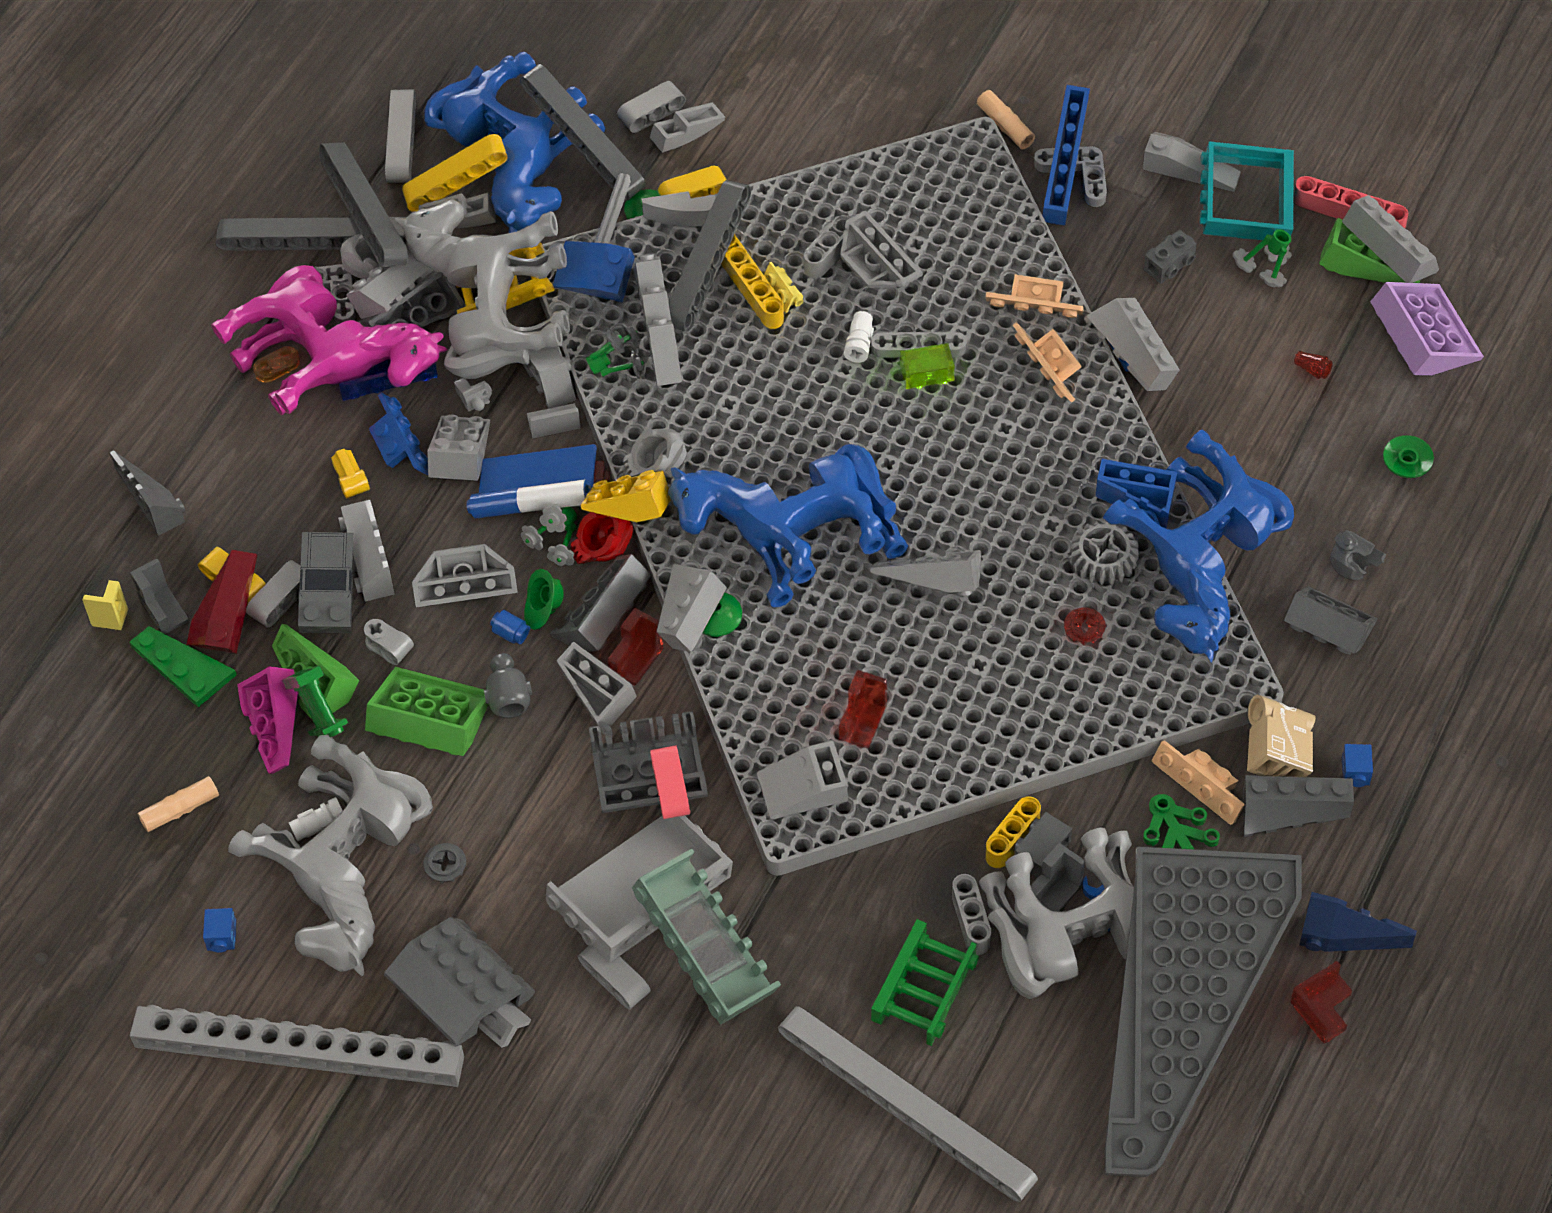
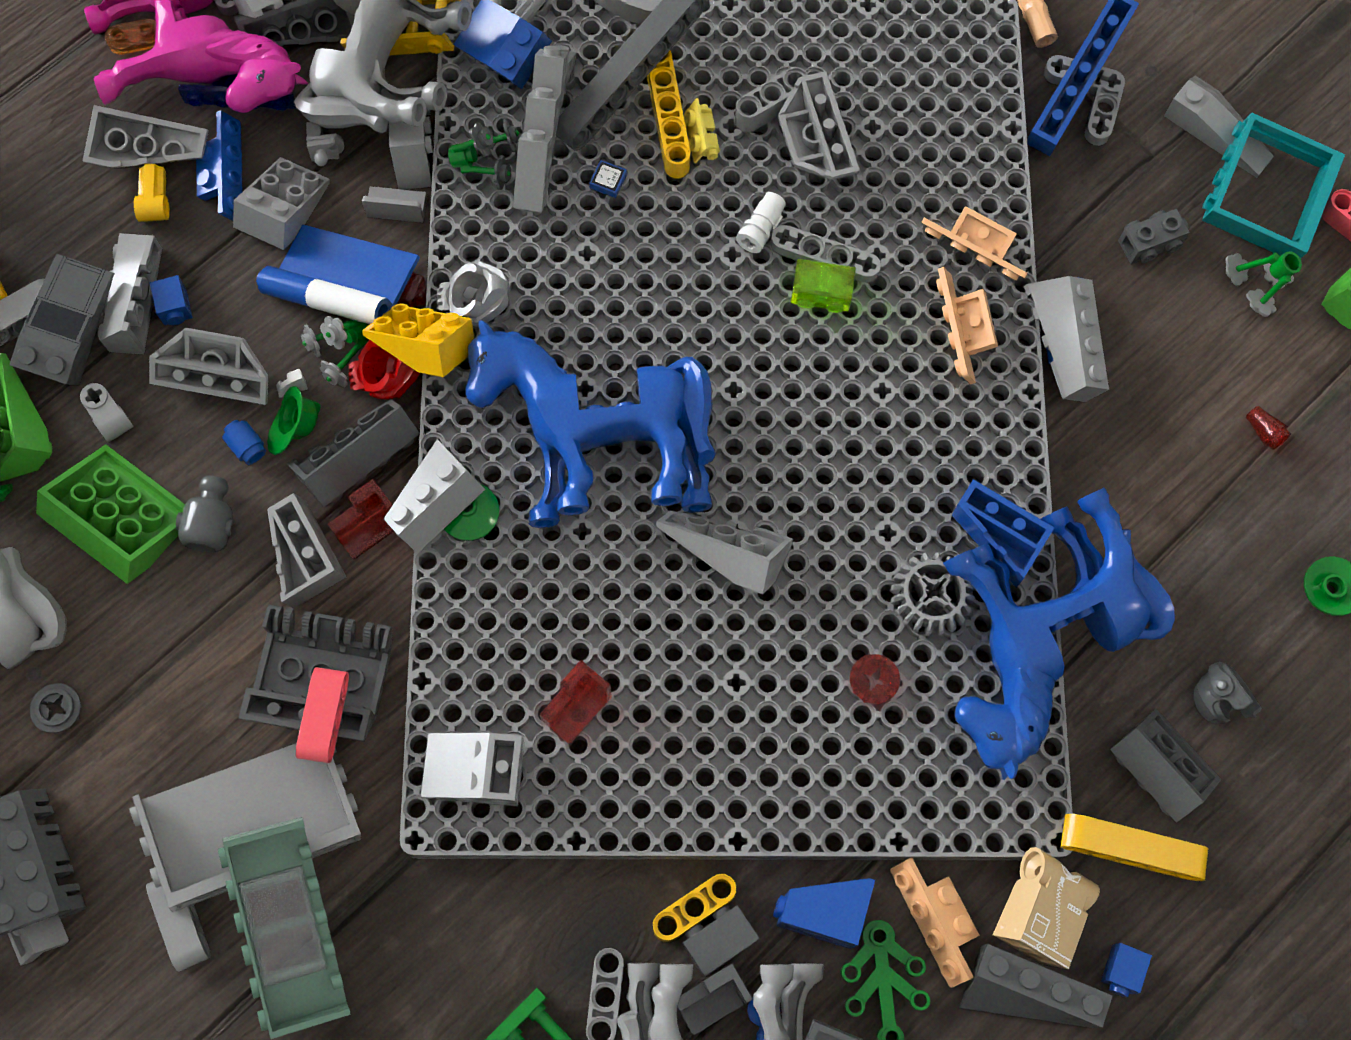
camera: 15 degrees right, 15 degrees up
(322, 434) = (133, 140): none -> light grey wedge
(402, 545) = (171, 300): none -> blue brick
(522, 581) = (294, 378): none -> white tile
(722, 344) = (608, 178): none -> tile
(1114, 796) = (827, 911): none -> blue slope
(1329, 677) = (1134, 847): none -> yellow beam

